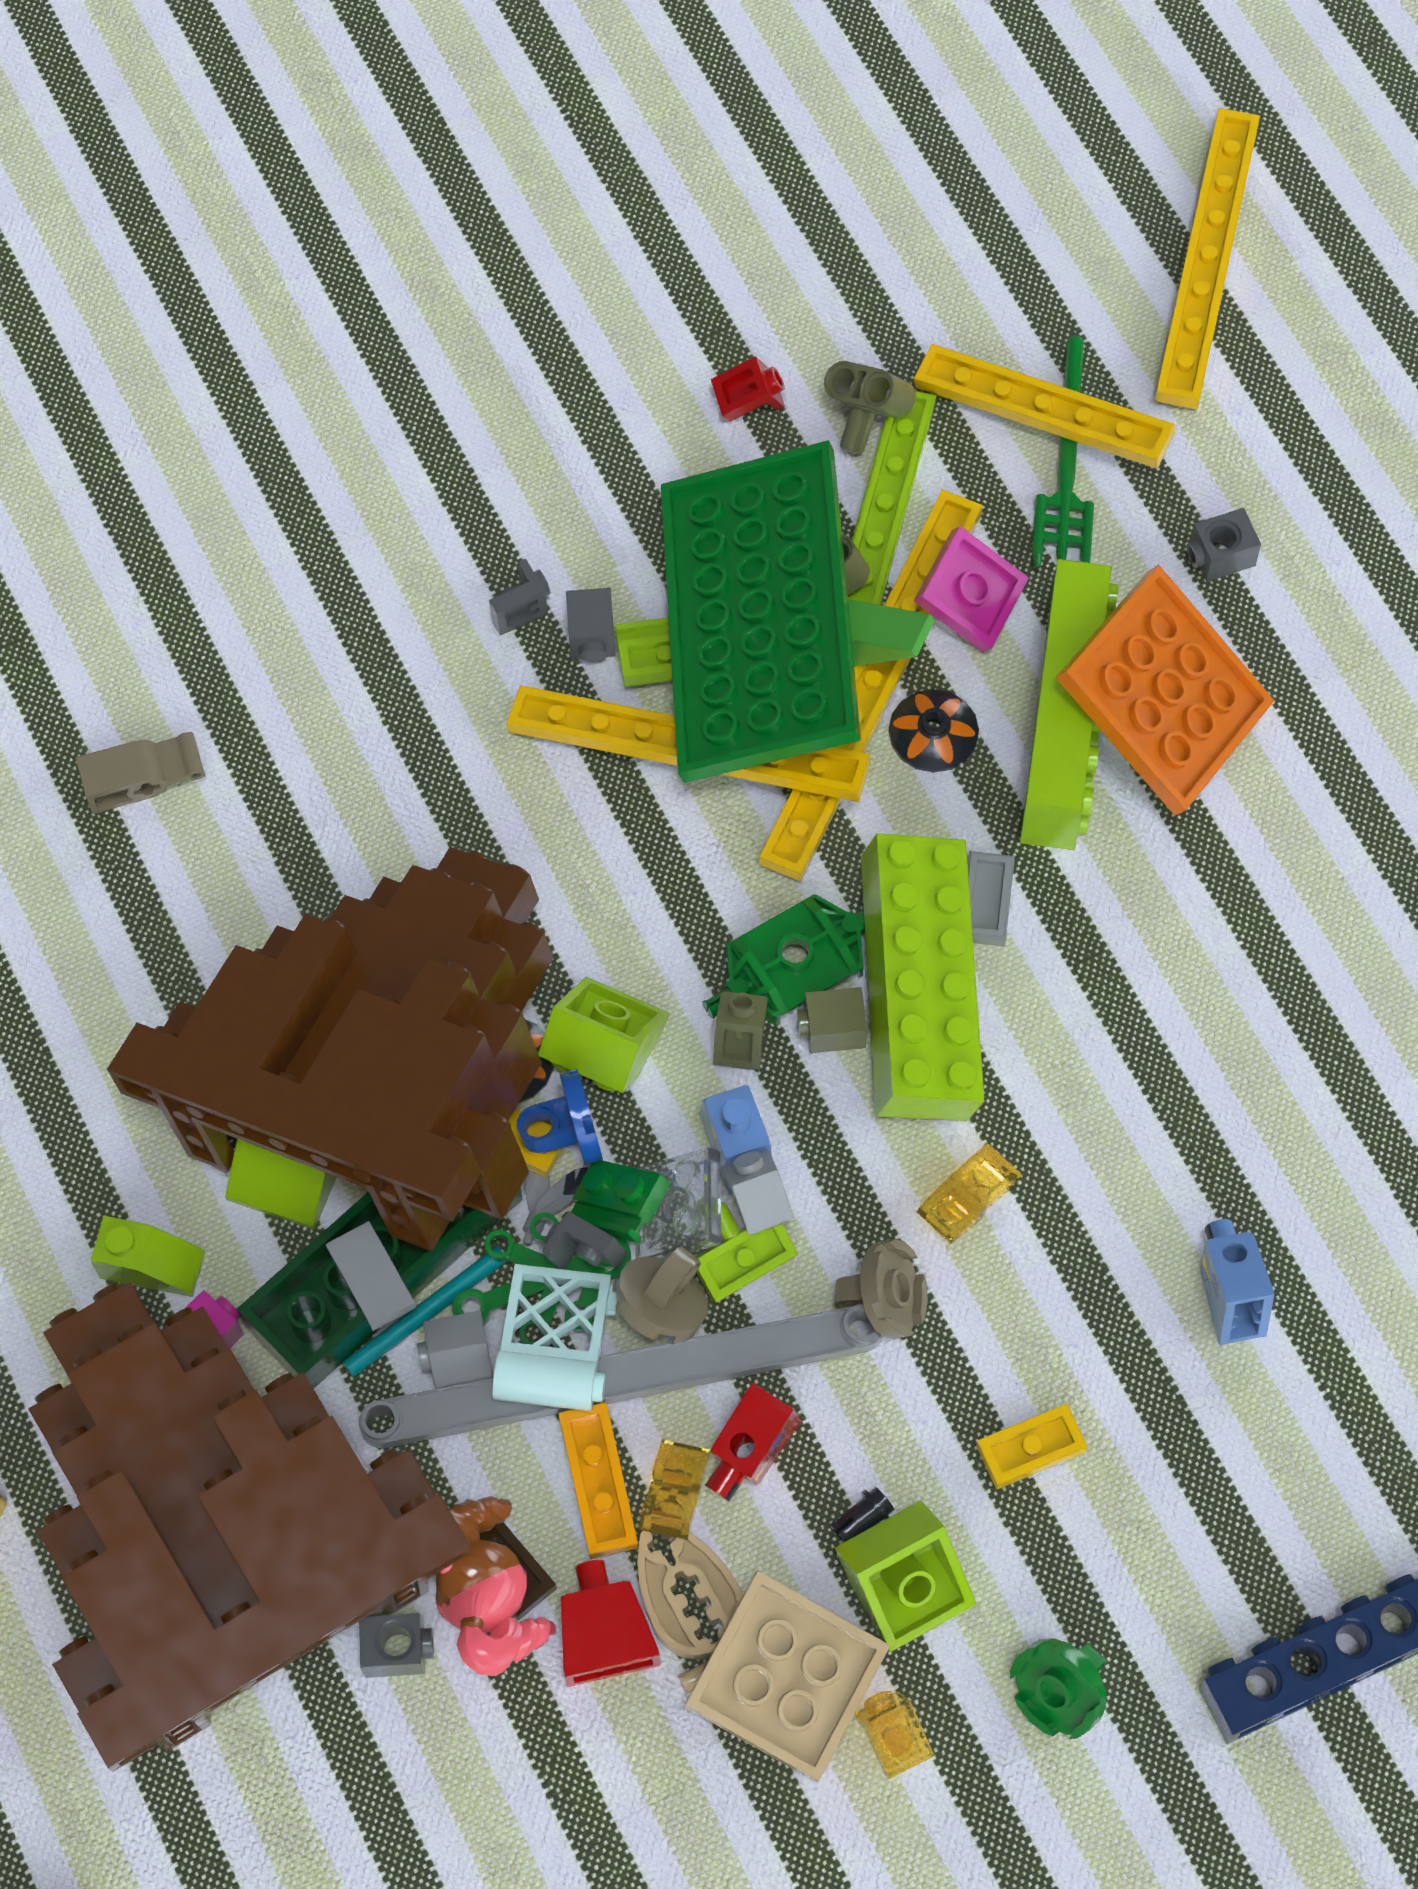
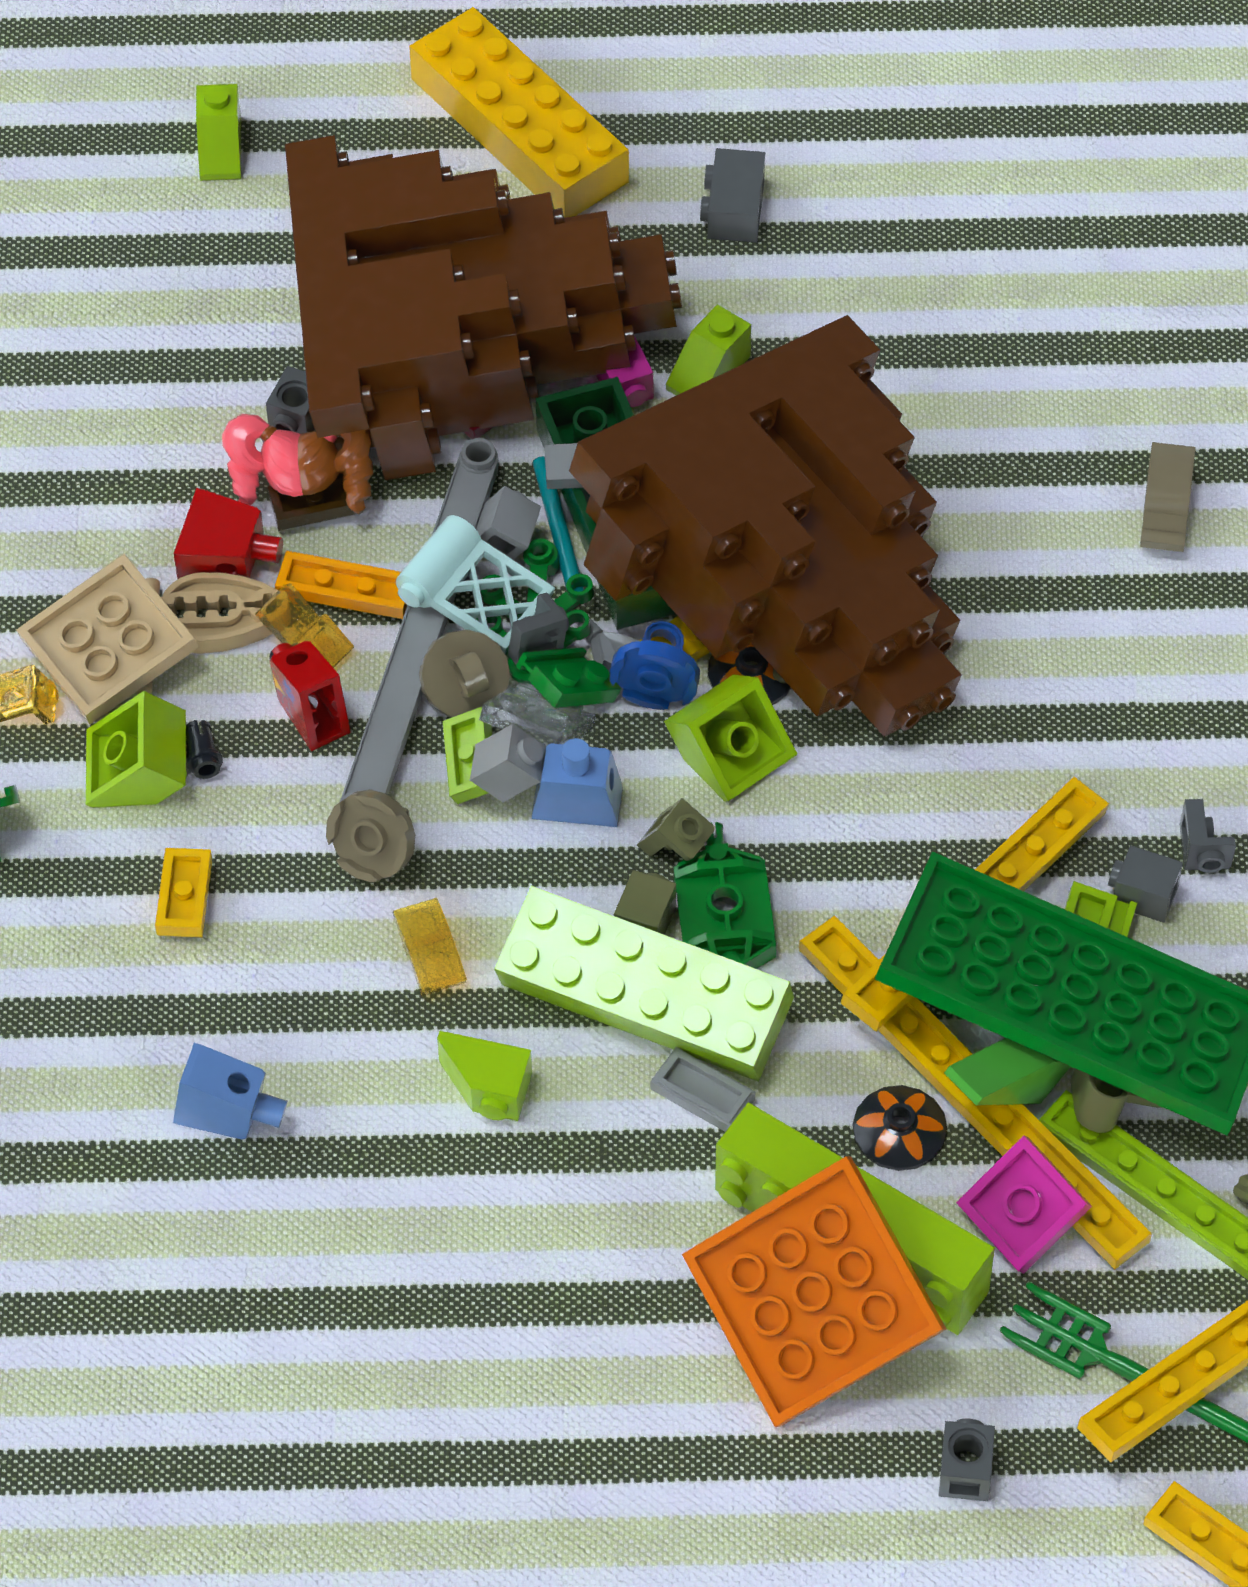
camera: 115 degrees right, 10 degrees down
(1079, 1071) = (487, 1074): none -> lime slope

